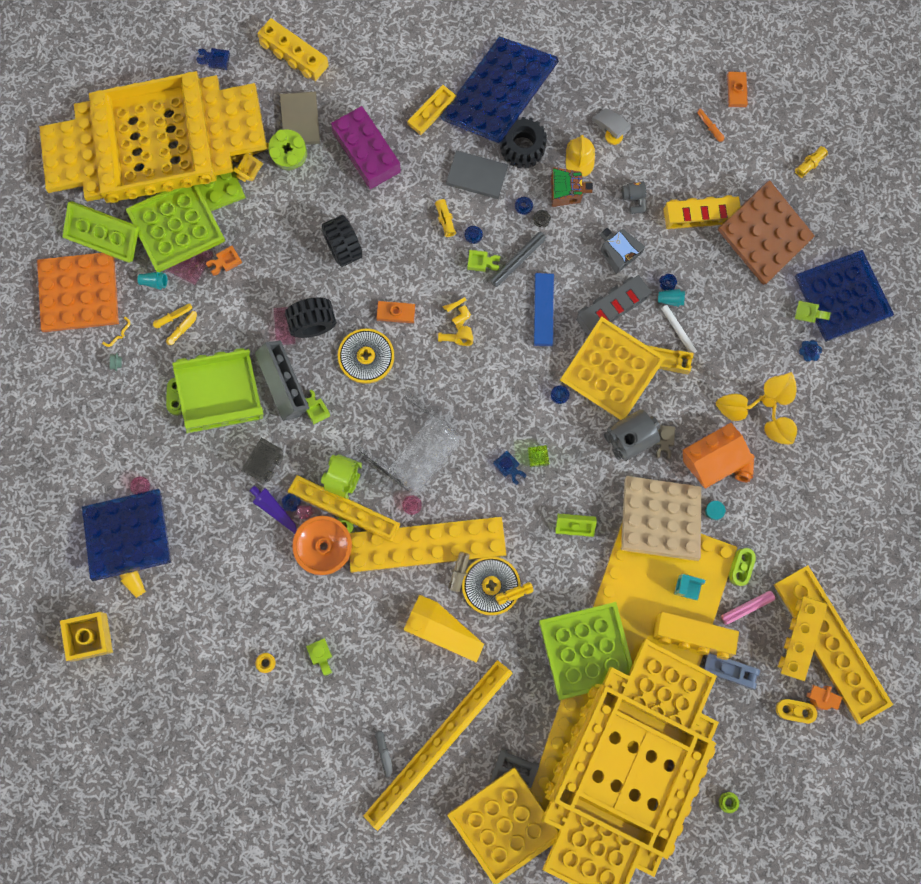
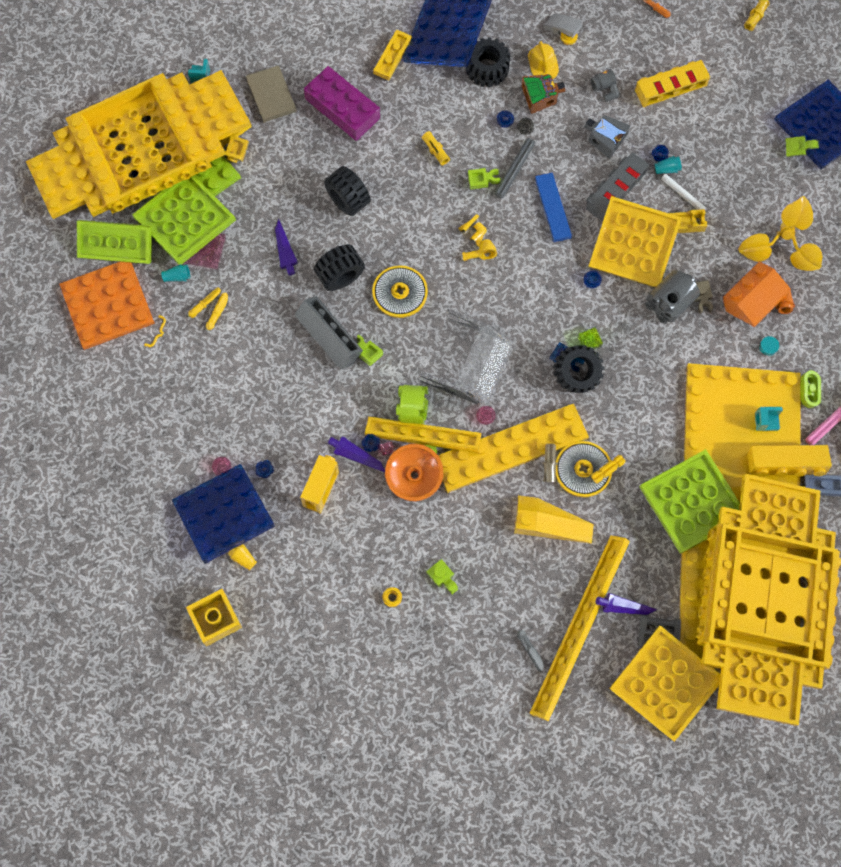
camera: 10 degrees left, 5 degrees down
(115, 361) = (162, 358): sand green plate -> none
(172, 397) = (230, 374): lime plate -> none
(175, 500) = (265, 464): none -> clear blue plate
(216, 58) = (176, 59): clear blue plate -> none
(217, 390) = (269, 358): lime panel -> none
(226, 259) = (240, 238): orange plate -> none
(227, 531) = (320, 483): none -> yellow window
(235, 78) = (199, 72): none -> teal panel
(263, 461) = (333, 411): clear smoke brick -> none
(266, 287) = (286, 254): none -> dark purple bar
(281, 327) = (313, 284): clear pink tile -> none
(284, 139) = (260, 118): lime brick -> none
(292, 49) = (245, 33): yellow brick -> none
(395, 312) = (415, 244): orange plate -> none
(473, 234) = (466, 156): clear blue plate -> none
(477, 174) = (453, 102): dark grey tile -> none
(483, 734) = (621, 605): none -> dark purple bar
(527, 496) = (594, 369): none -> black tyre
(575, 525) = (645, 392): lime plate -> none
(661, 518) = (723, 364): tan plate -> none
(766, 232) = (736, 85): dark orange plate -> none
(810, 350) = (809, 181): clear blue plant -> none

